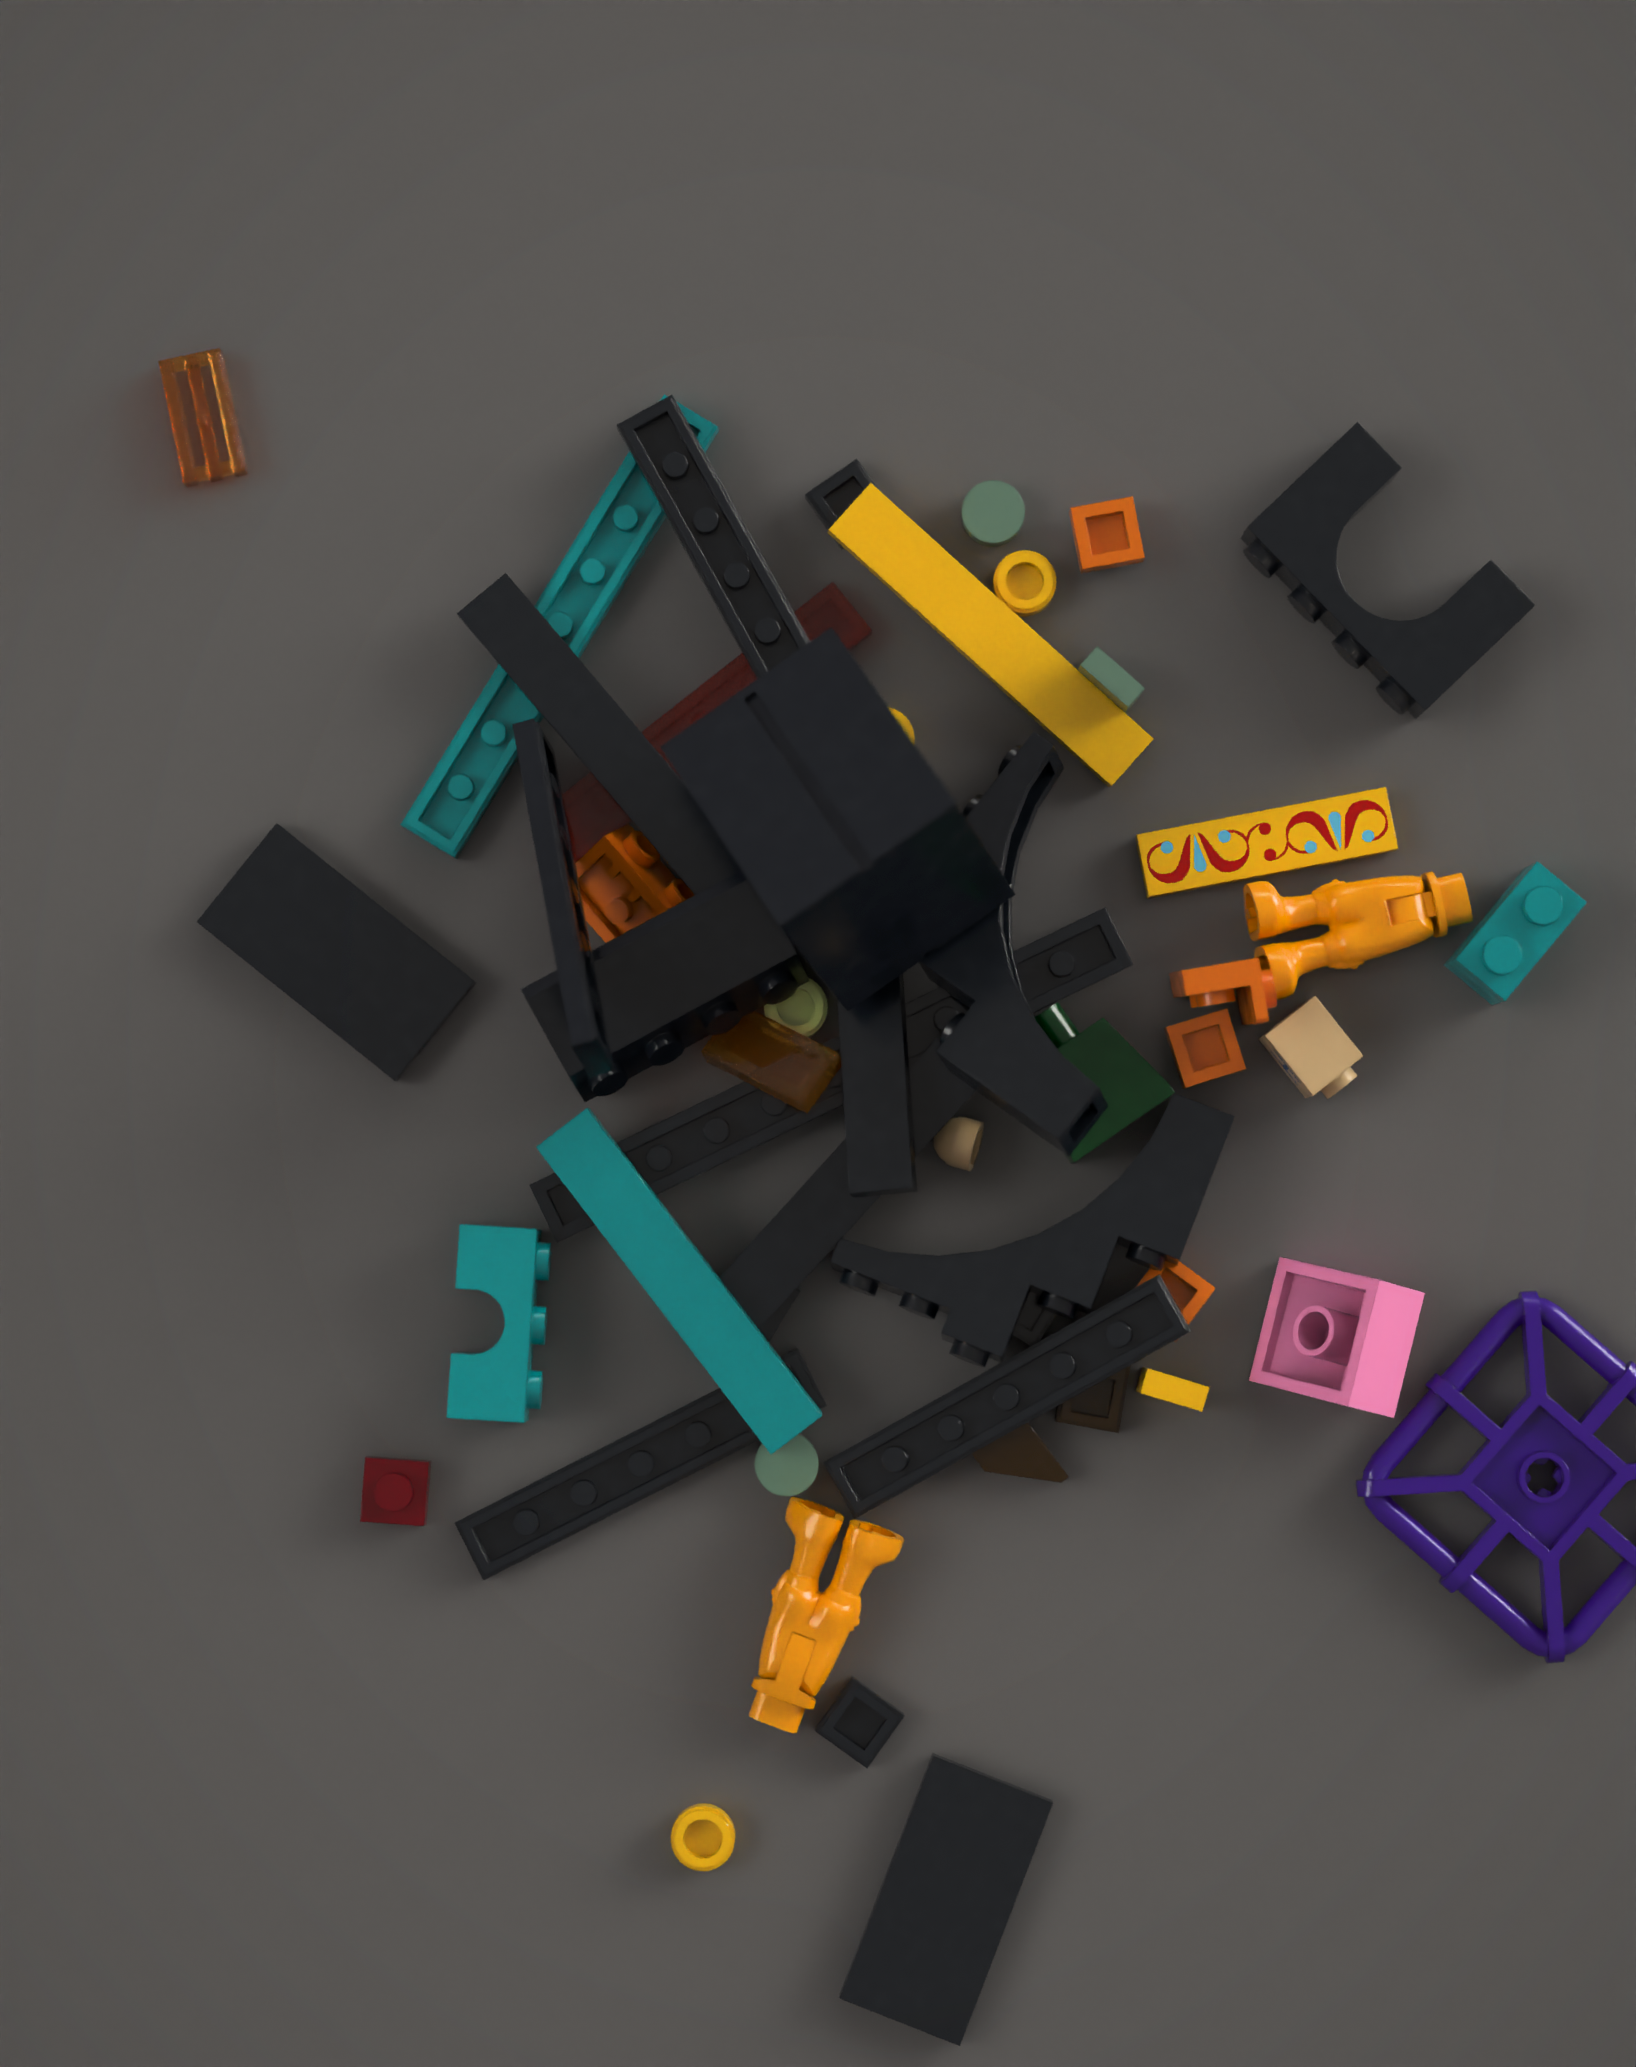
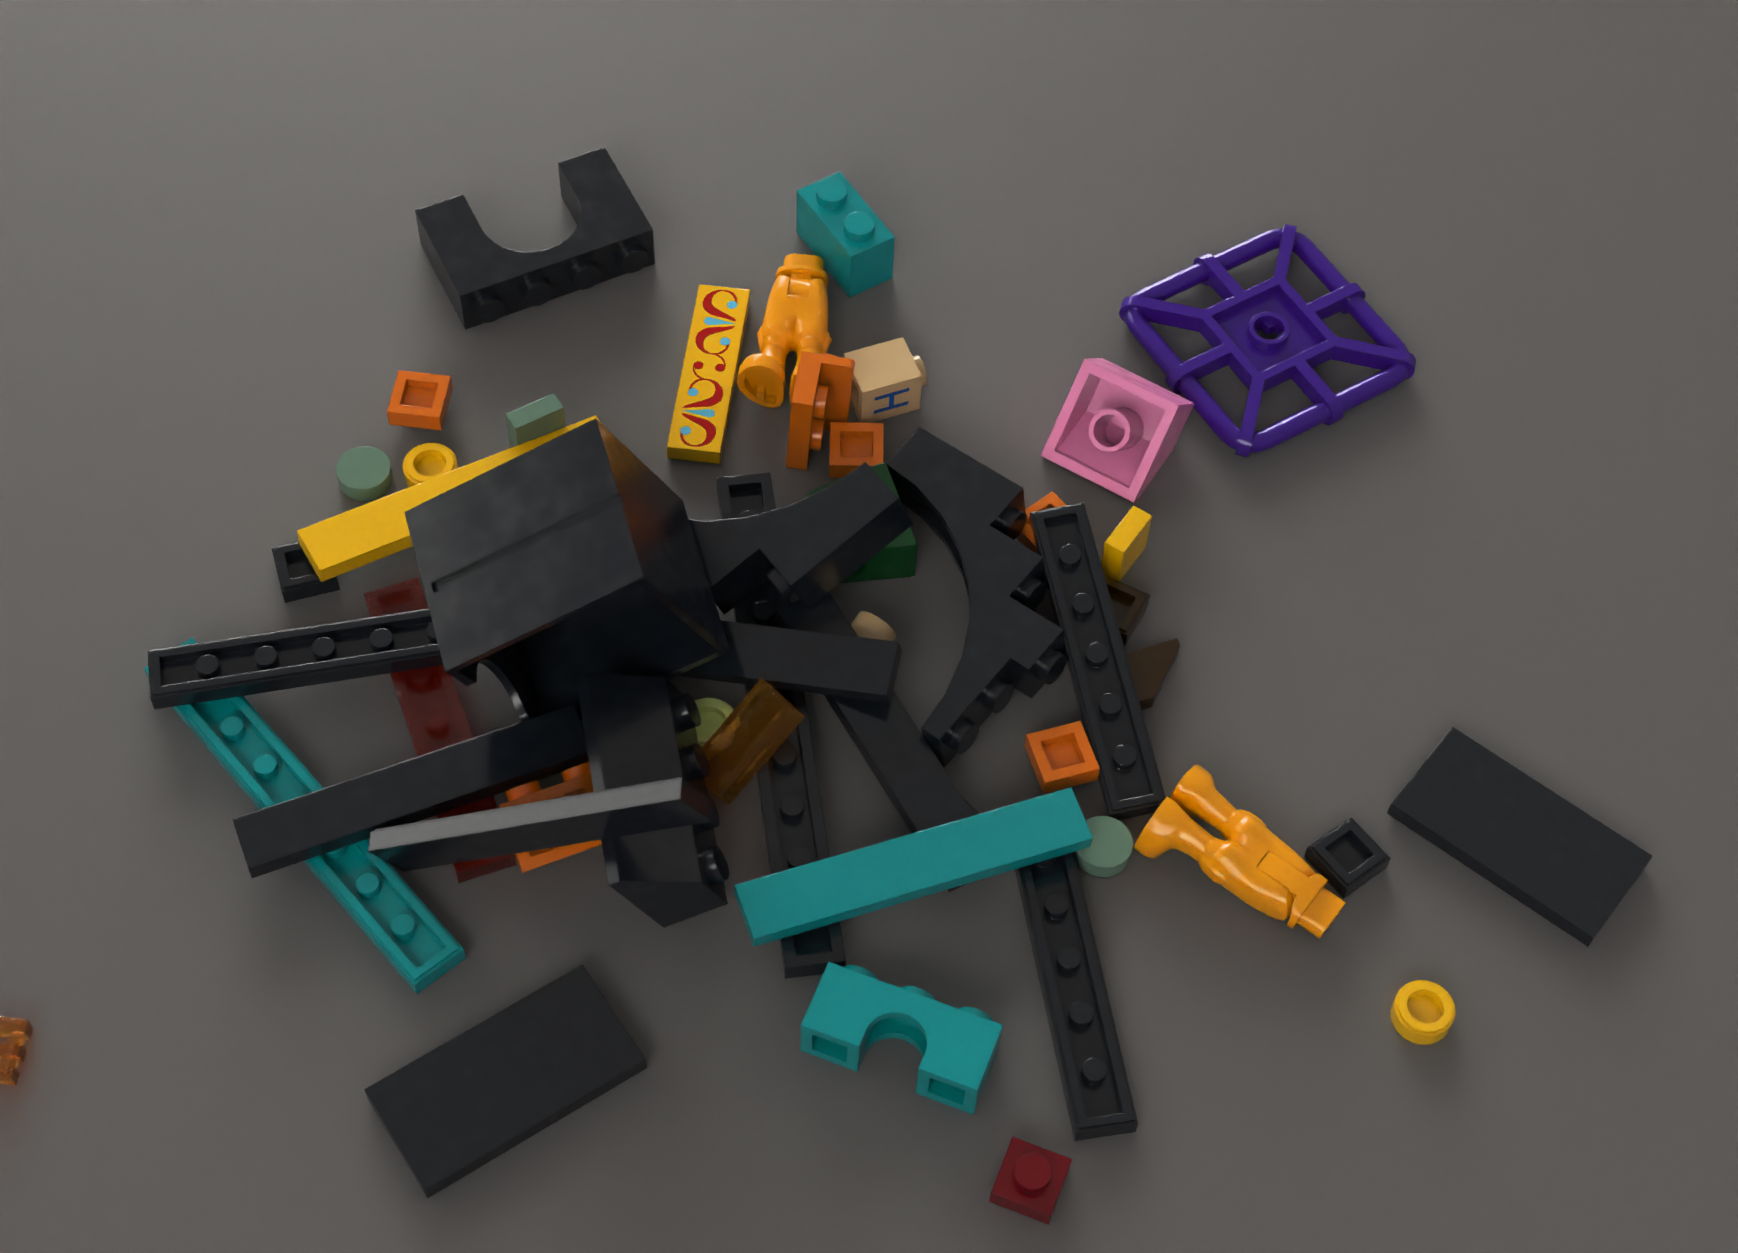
camera: 75 degrees left, 30 degrees down
(874, 1392) = (1061, 757): none -> orange plate

